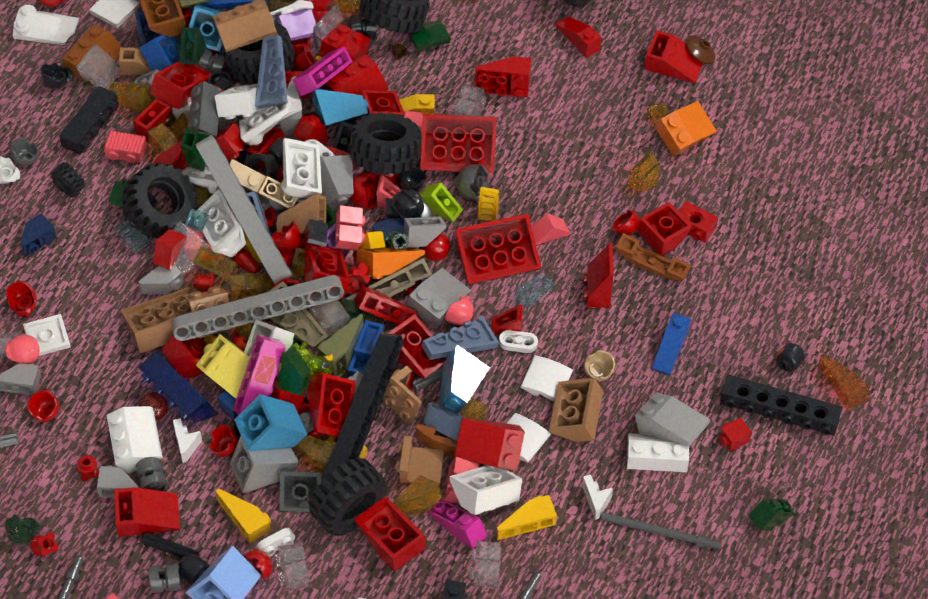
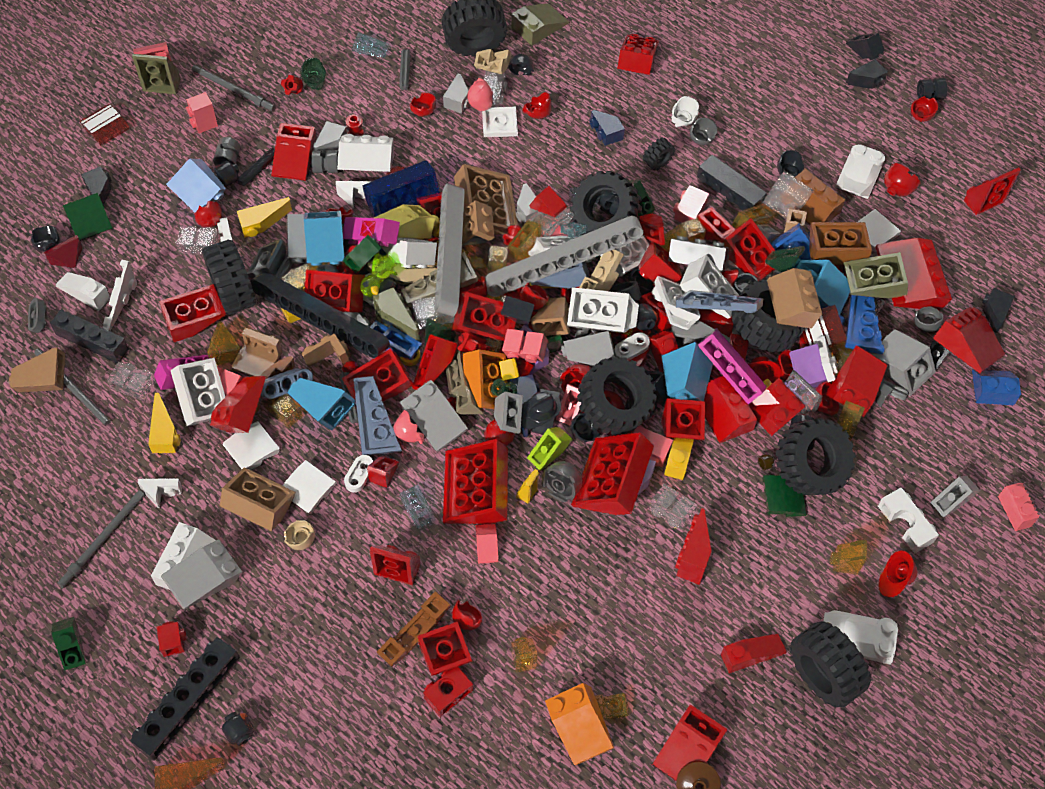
camera: 105 degrees right, 5 degrees up
(190, 150) = (653, 235): dark green slope -> none
(672, 343) = (302, 615): blue slope -> none

